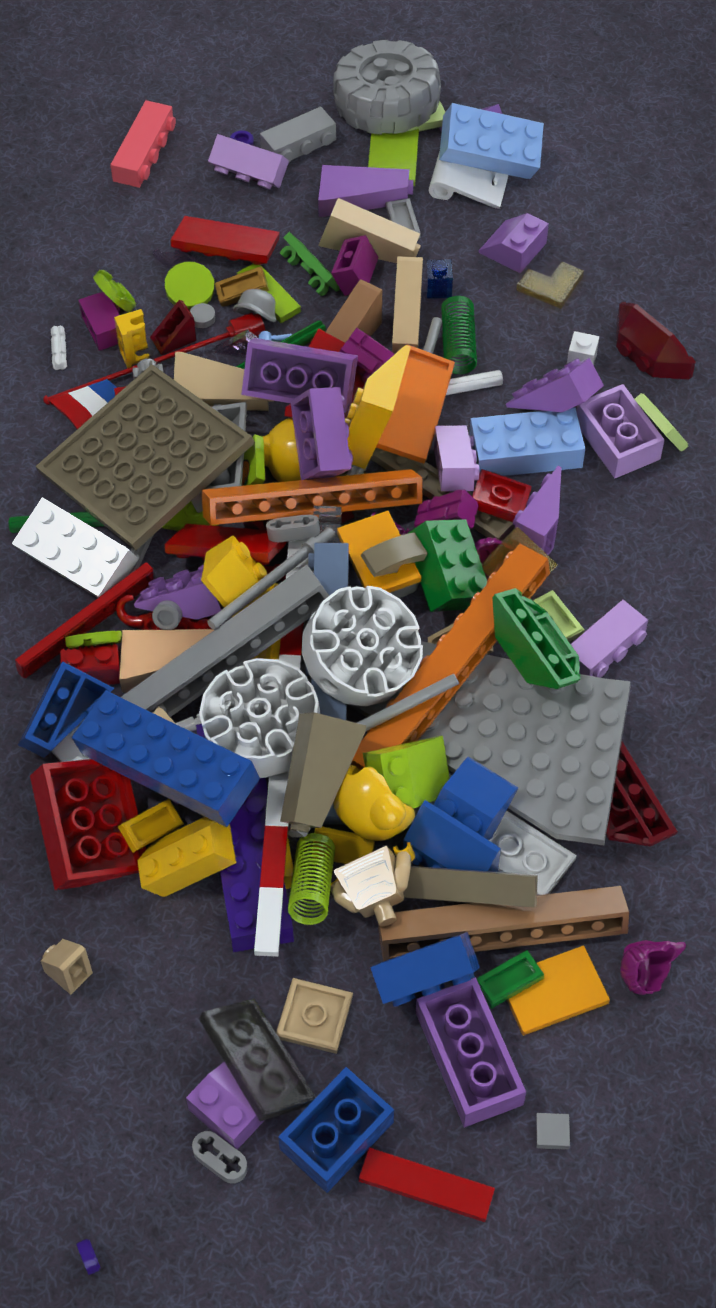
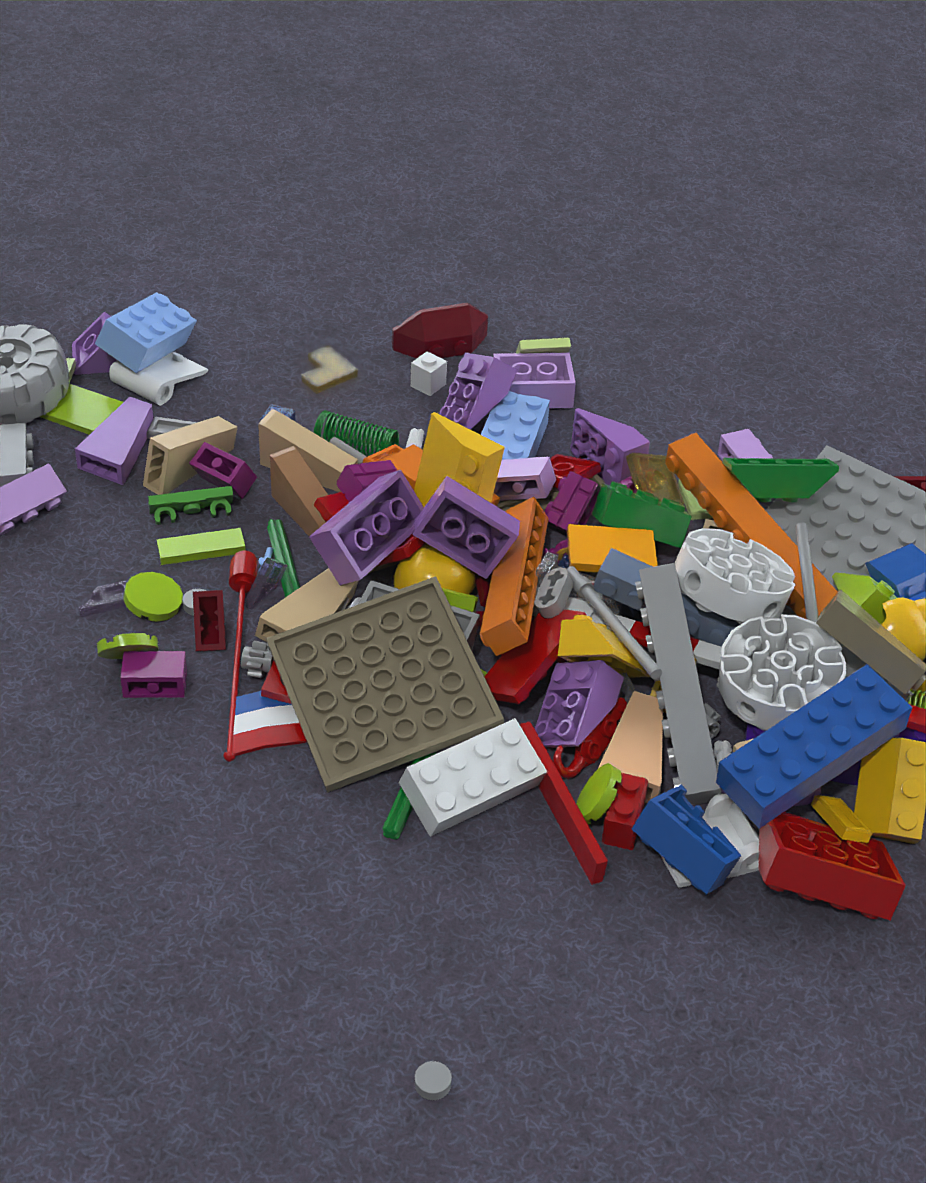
camera: 70 degrees left, 15 degrees down
(58, 347) = (161, 725): white axle -> none
(131, 336) = (208, 651): yellow hinge -> none
(167, 615) = (602, 722): light grey tile -> none
(225, 240) = (112, 550): red tile -> none
(231, 289) = (185, 557): pearl gold tile -> none
(255, 302) = (224, 546): light grey helmet -> none
(392, 553) = (630, 531): dark tan slope -> none
(516, 241) = (264, 369): medium lavender slope -> none

